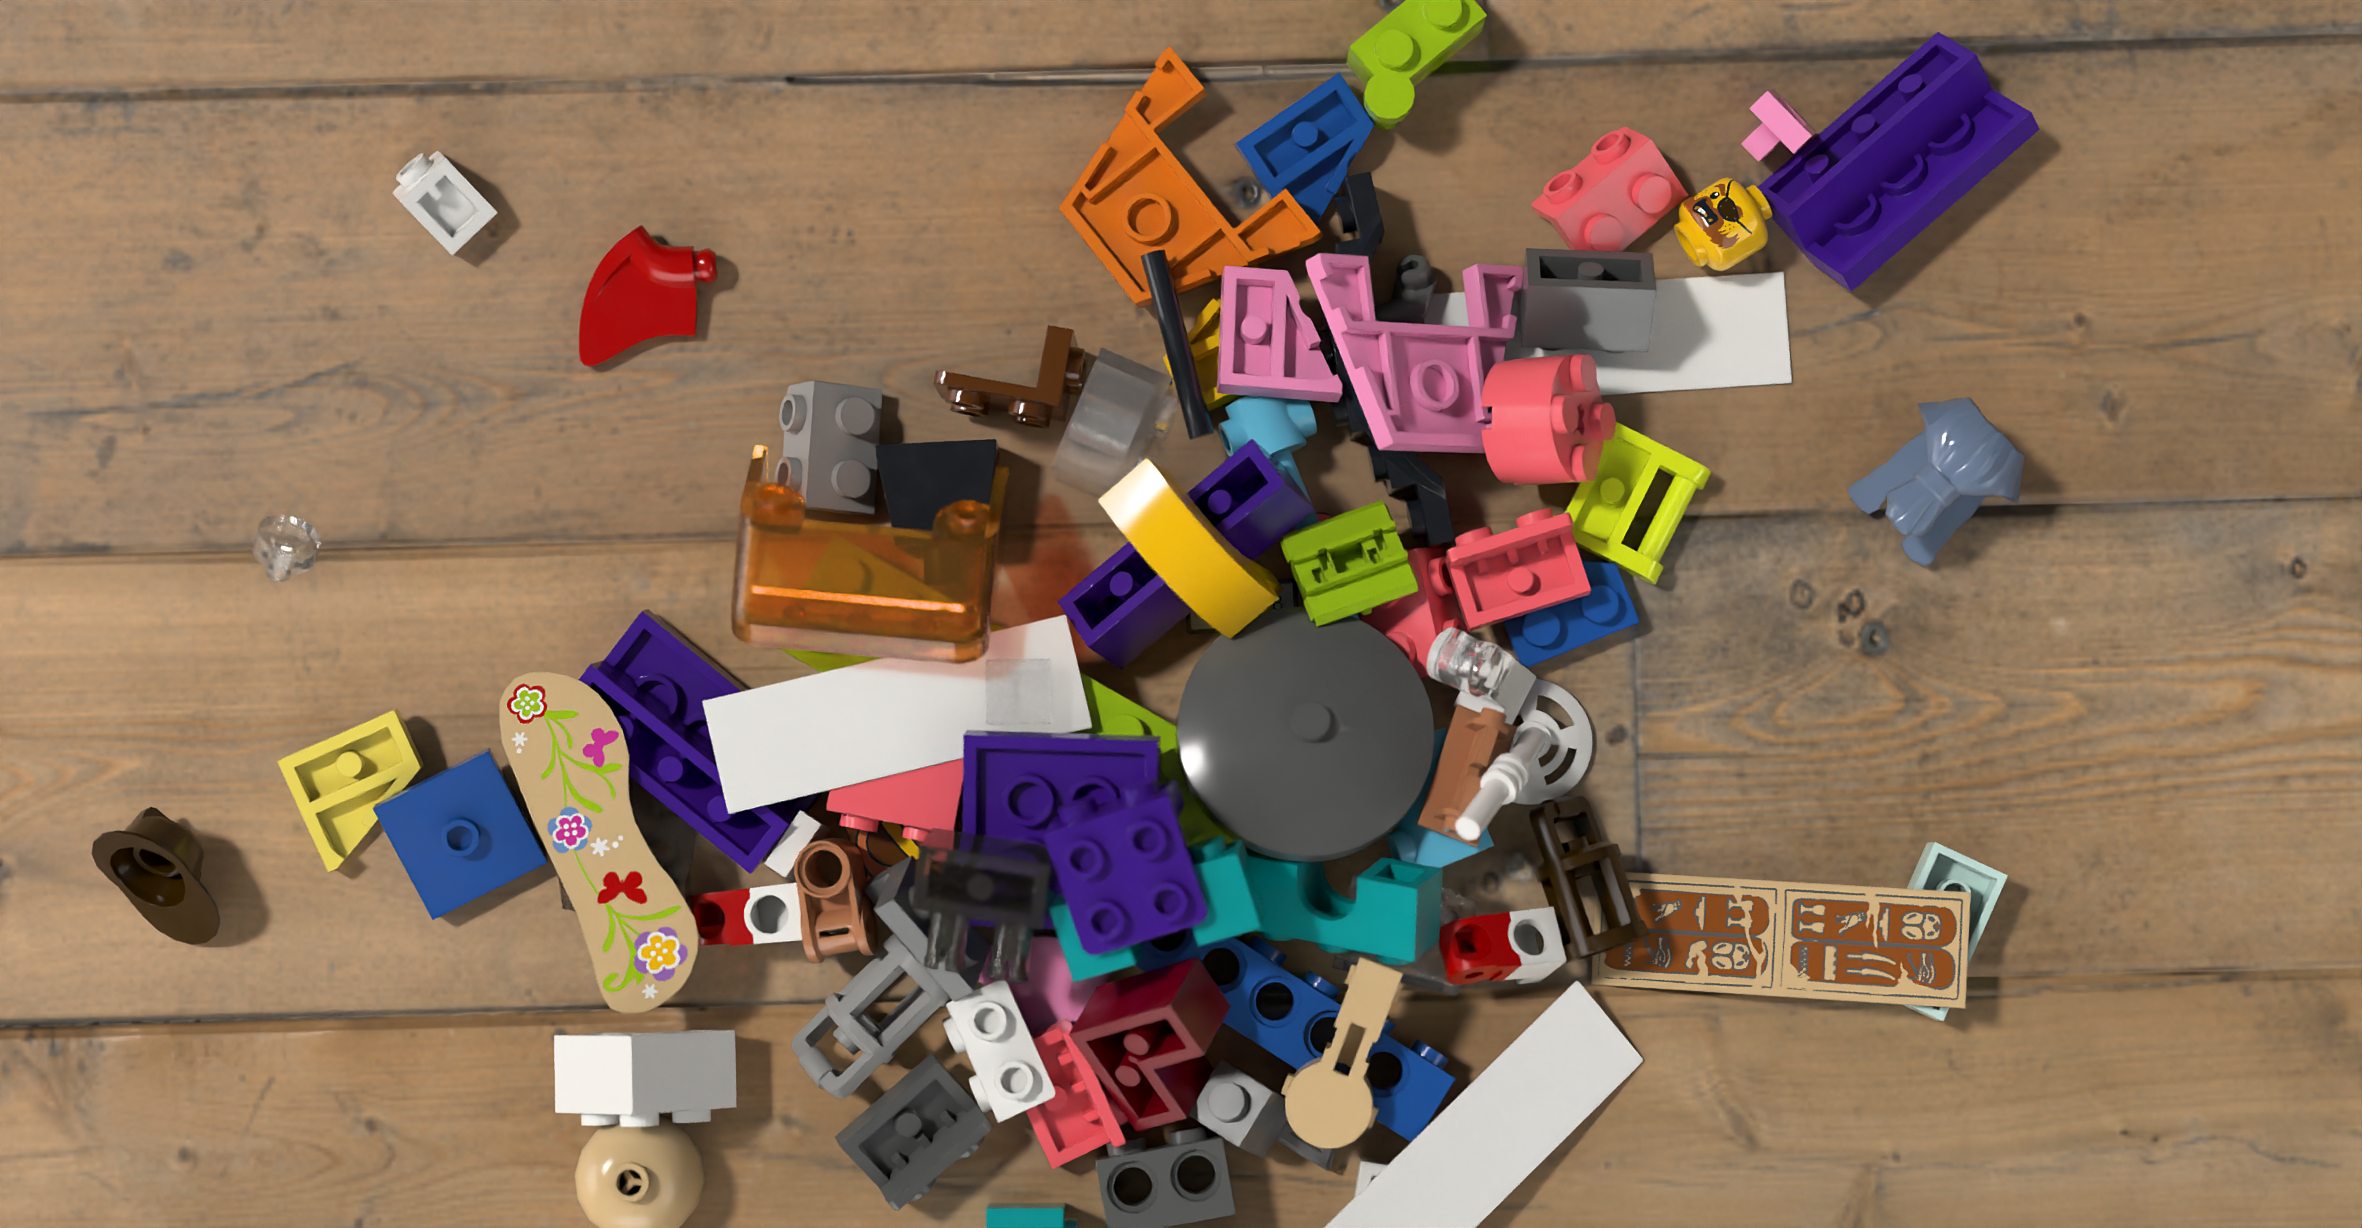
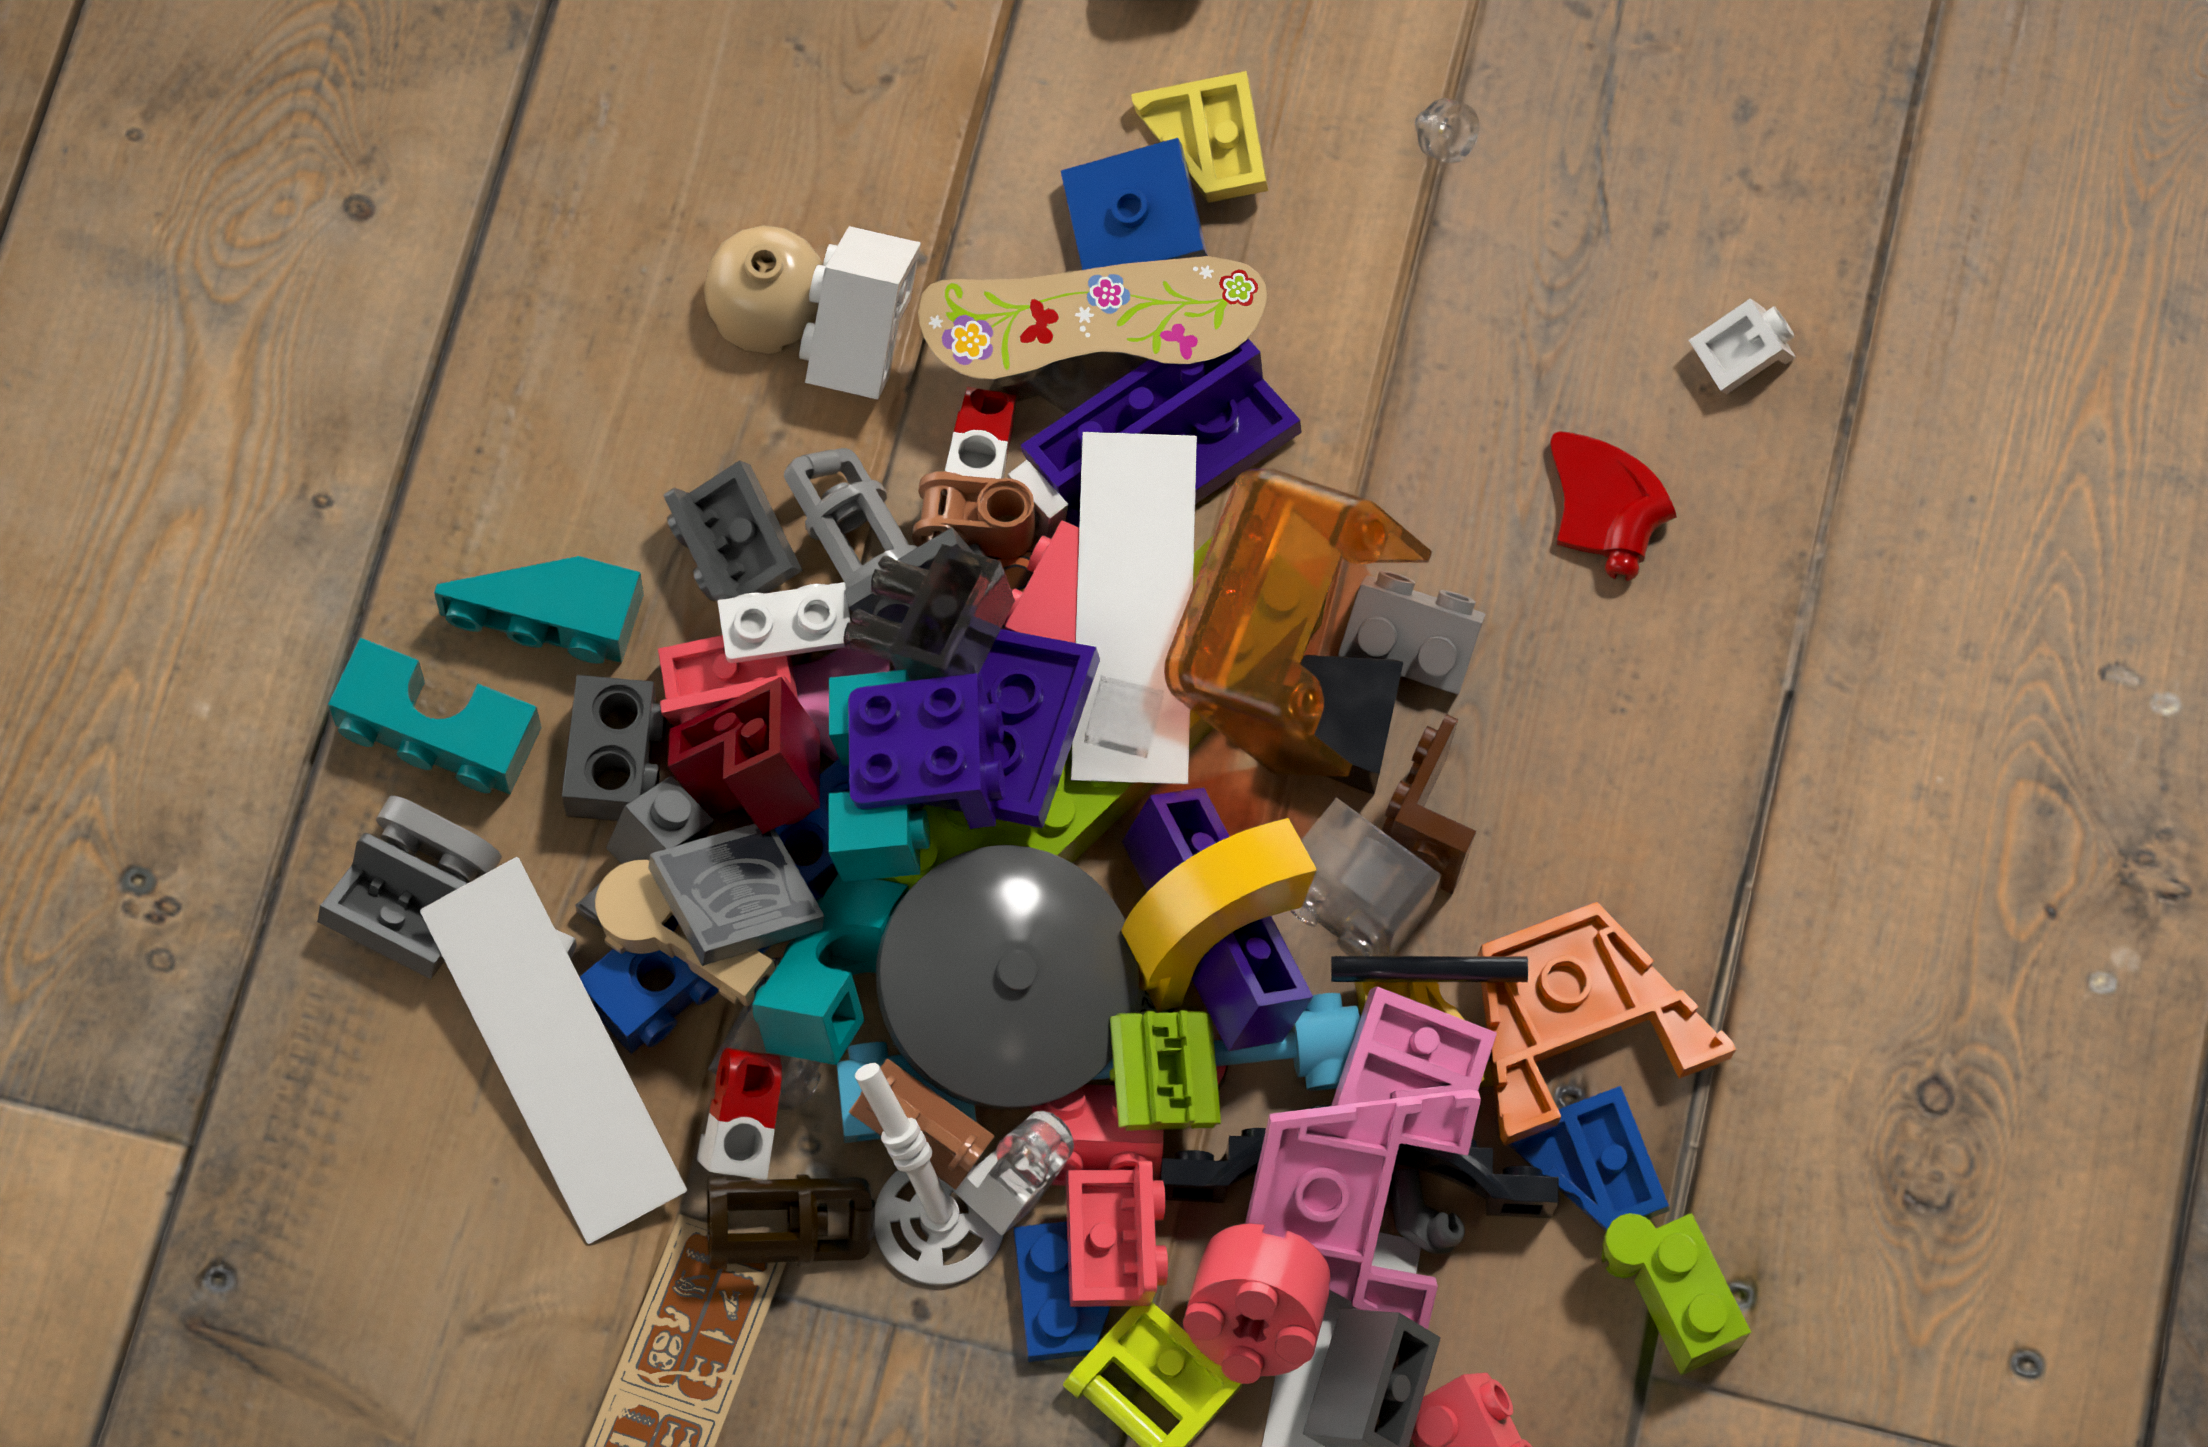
camera: 100 degrees right, 15 degrees down
(1301, 1013) = (735, 892): none -> dark grey tile

